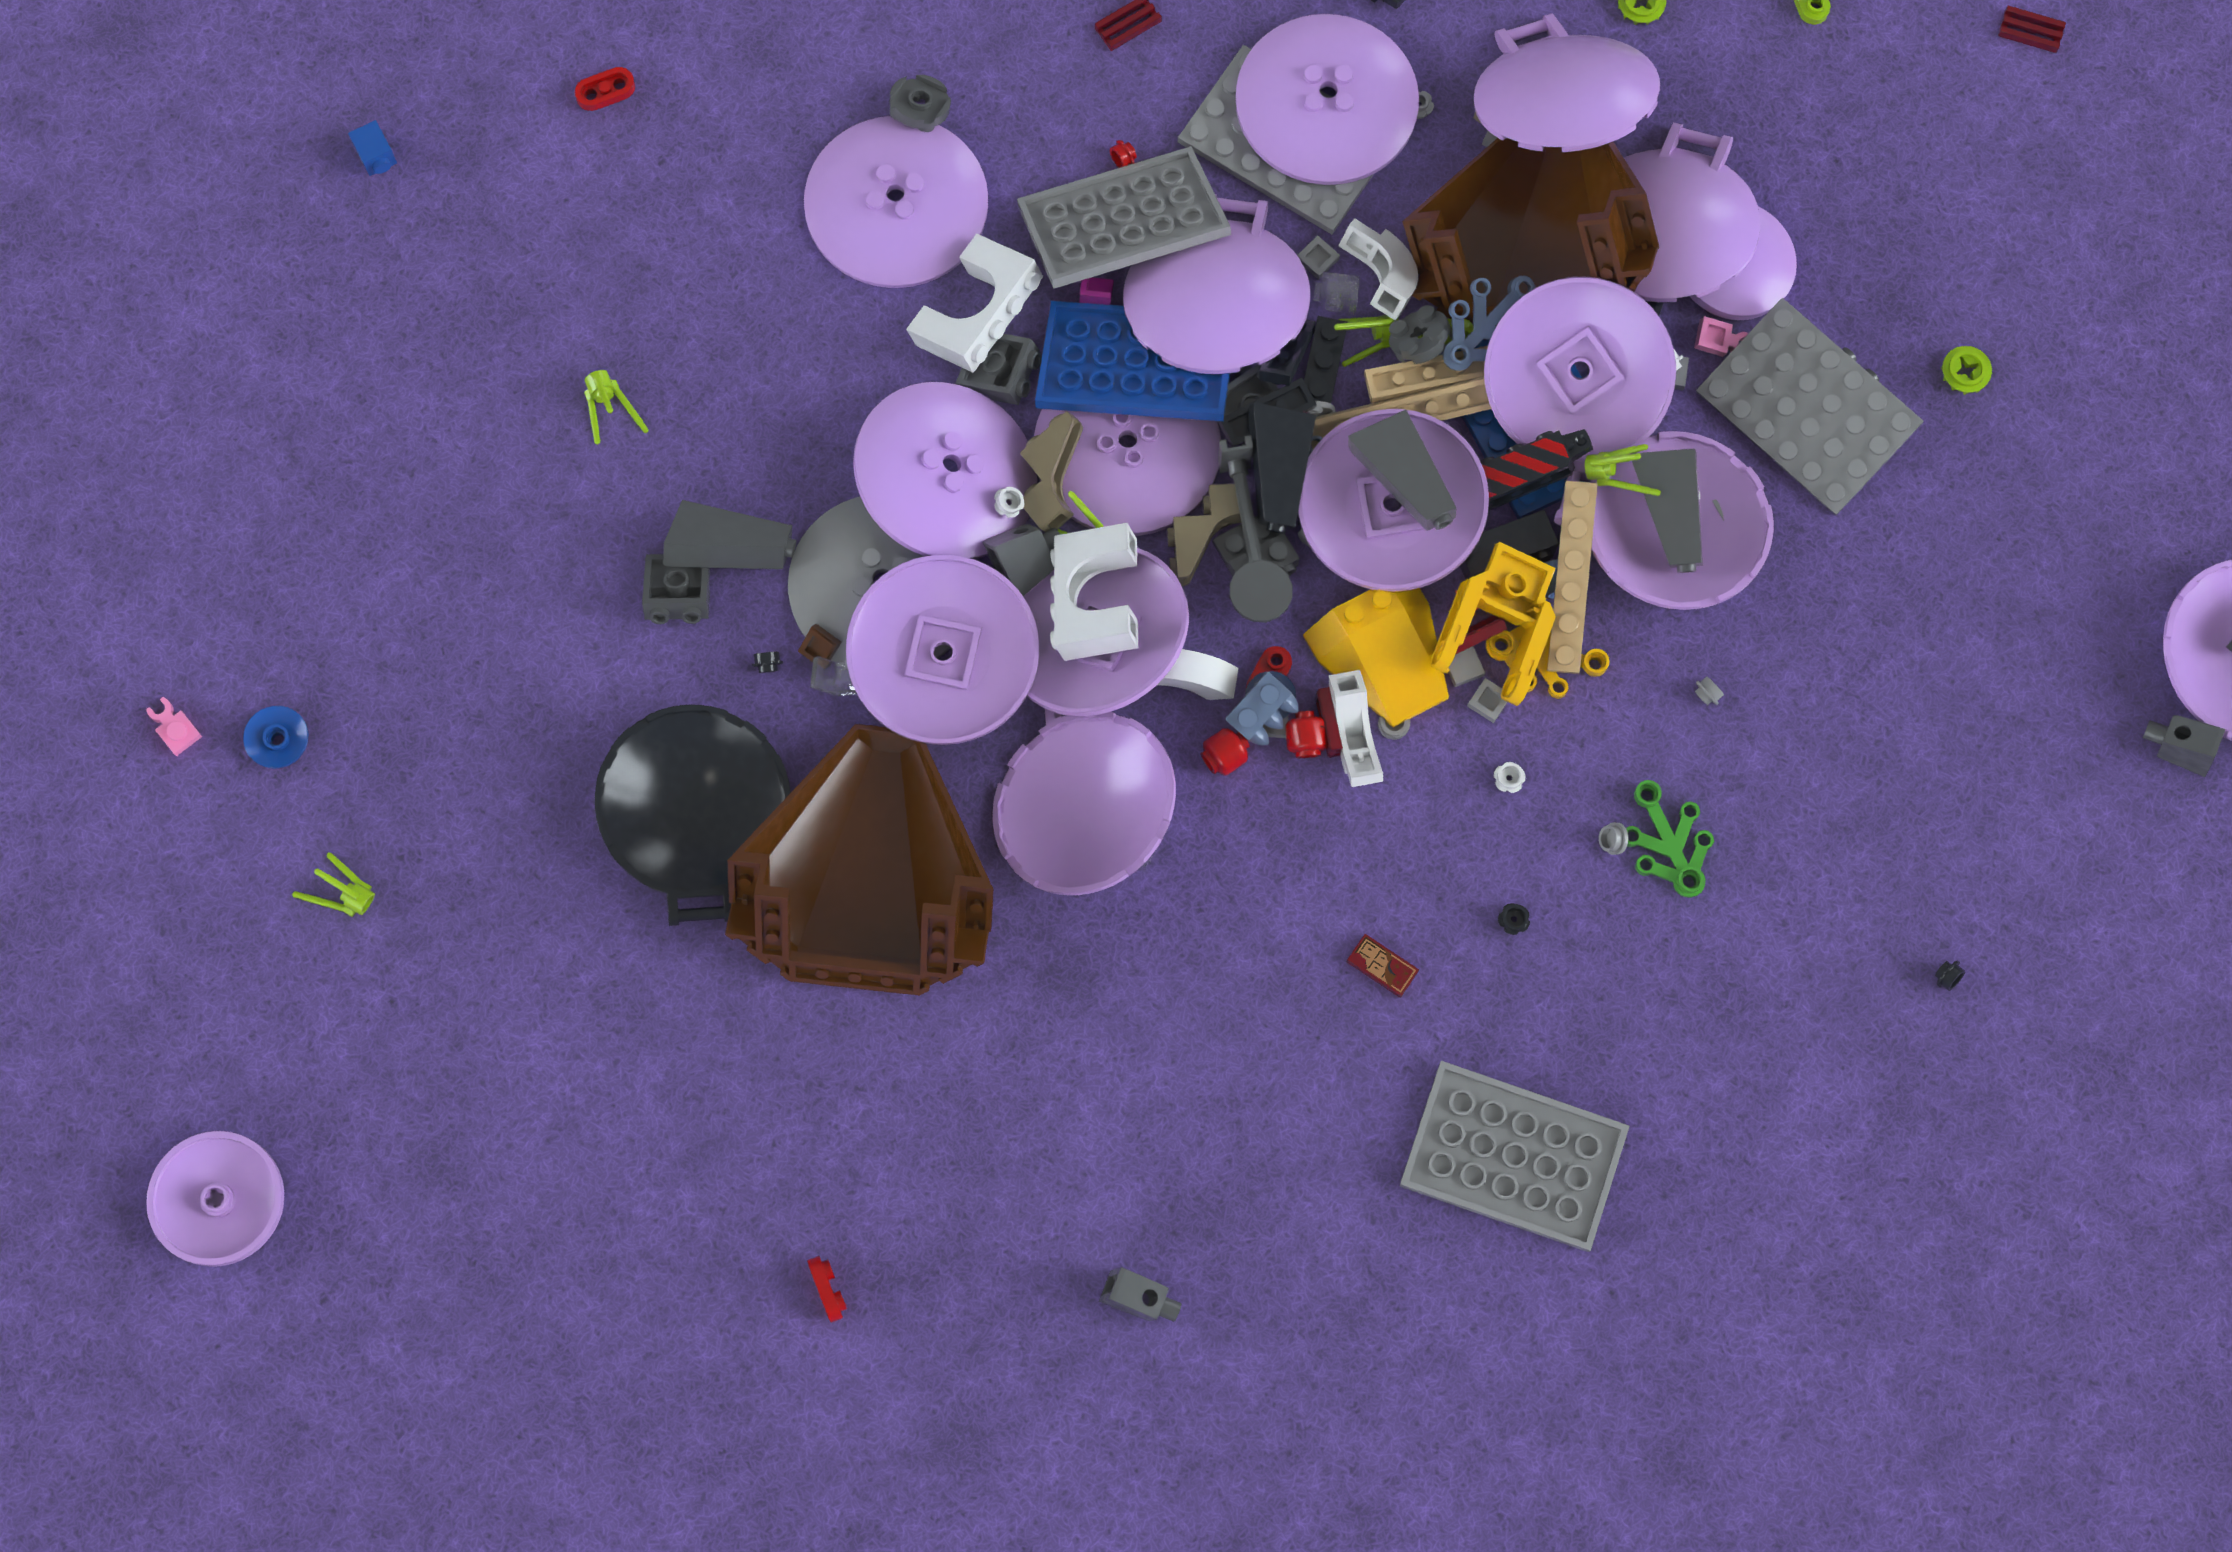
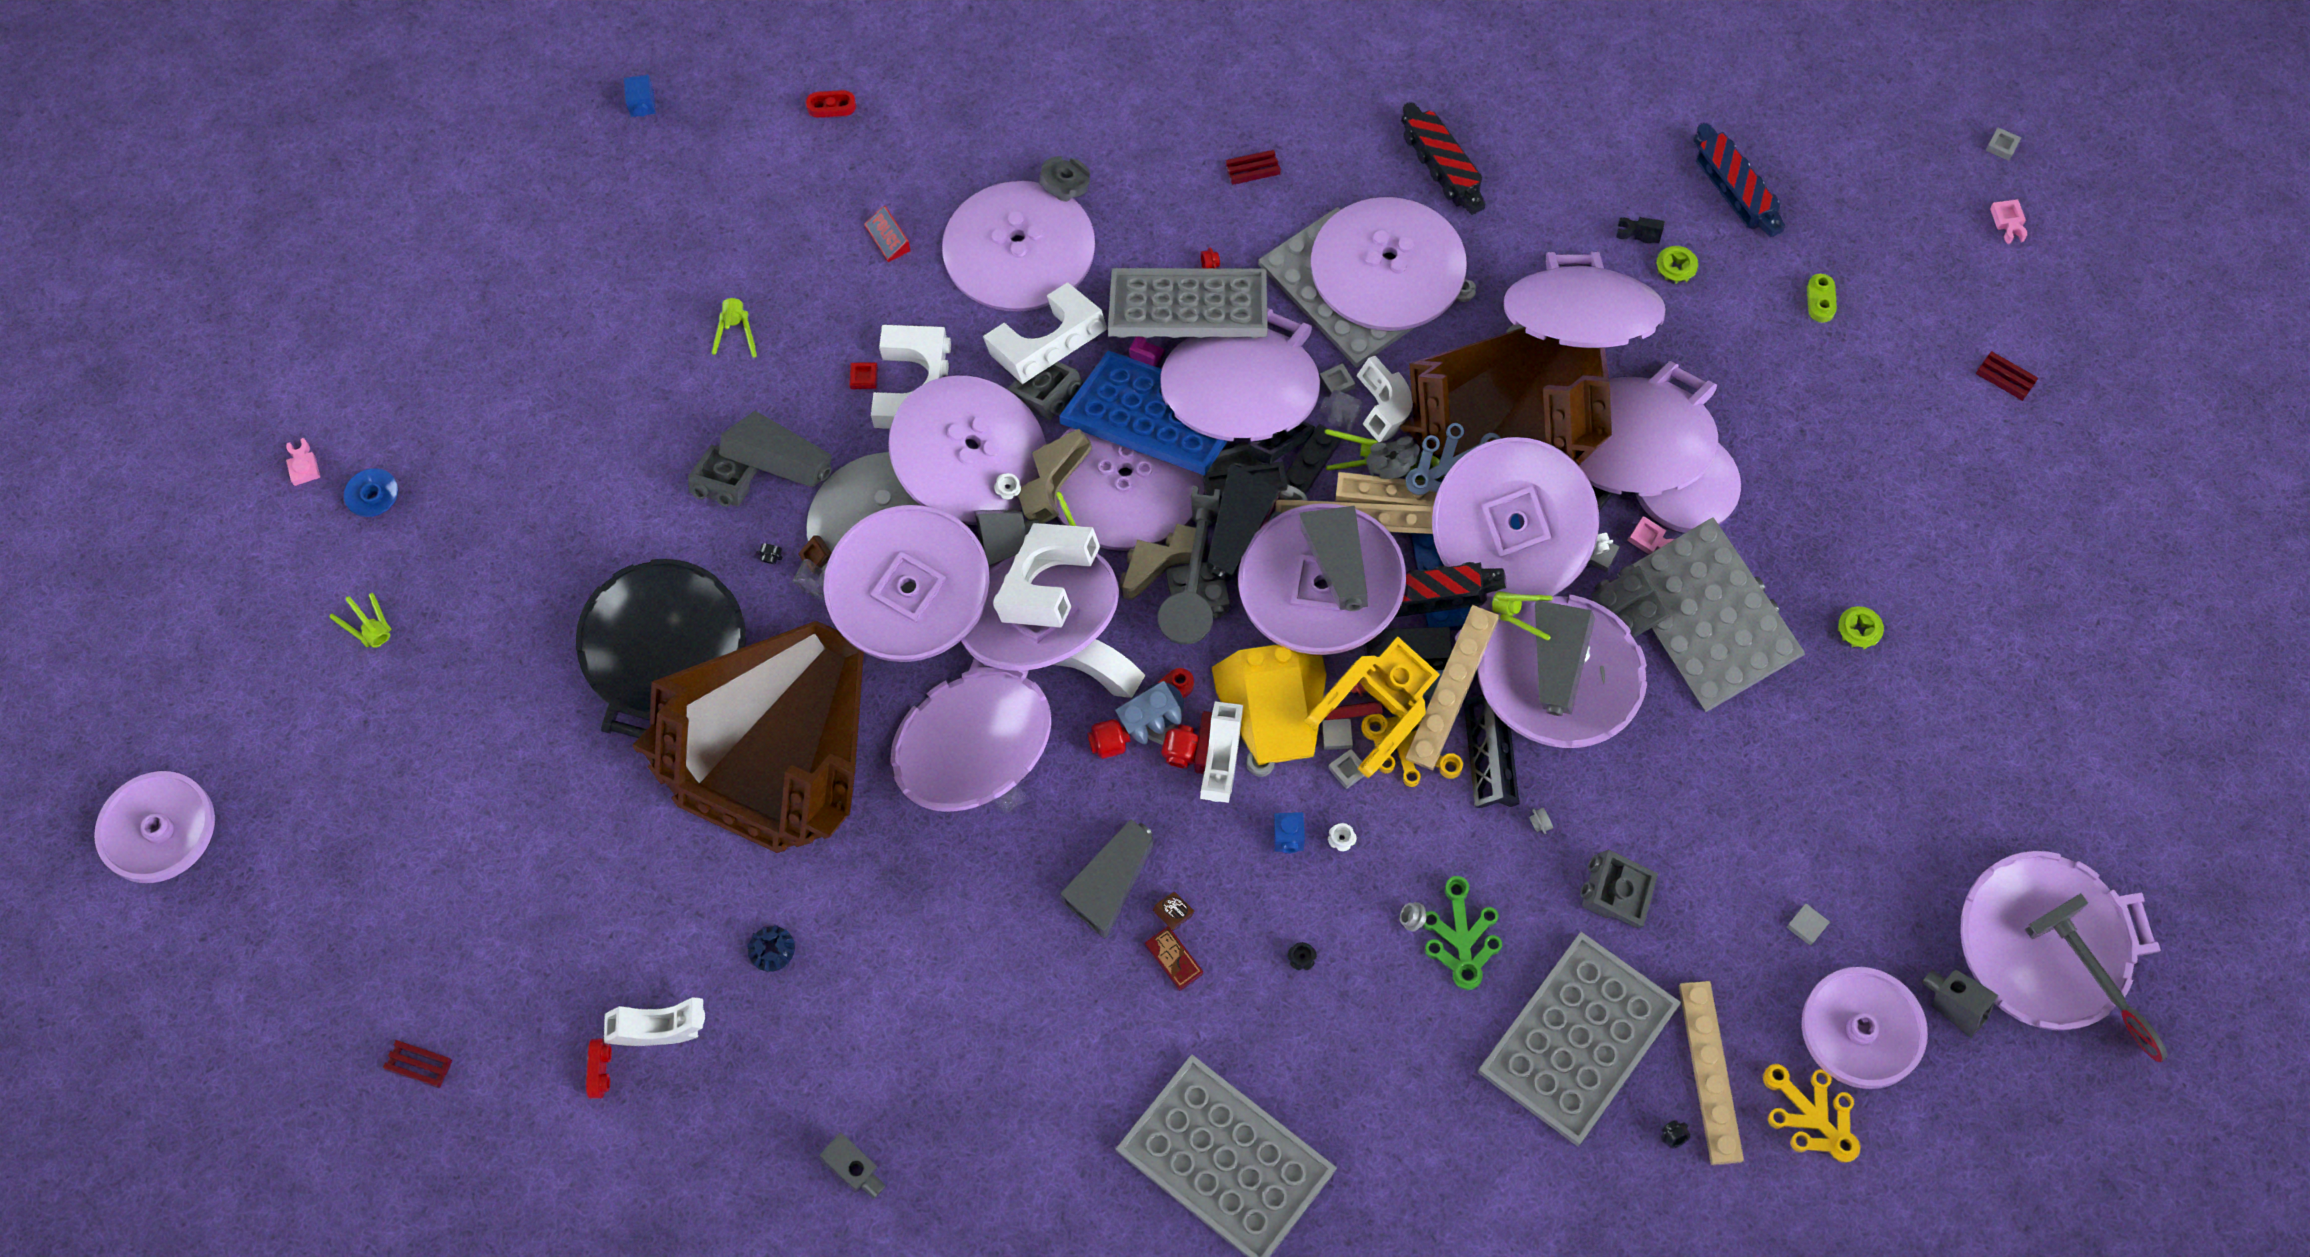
camera: 25 degrees right, 10 degrees down
(598, 1350) = (396, 1056): none -> dark red tile
(740, 234) = (887, 234): none -> slope
(783, 416) = (863, 375): none -> red tile
(843, 361) = (913, 344): none -> white arch
(871, 1222) = (654, 1026): none -> white arch
(960, 1112) = (771, 961): none -> dark blue gear
(1283, 910) = (1107, 880): none -> dark grey slope
(1364, 915) = (1173, 910): none -> reddish brown tile
(1455, 792) = (1289, 832): none -> blue brick
(1642, 632) = (1498, 748): none -> black fence
(1724, 417) = (1632, 599): none -> dark grey plate
(1812, 738) = (1618, 888): none -> dark grey plate
(1823, 909) = (1579, 1038): none -> light grey plate
(1963, 899) = (1710, 1073): none -> tan plate
(2011, 712) = (1808, 924): none -> light grey tile
(2078, 910) = (1814, 1115): none -> yellow plant
(2101, 803) = (1864, 1027): none -> lavender dish

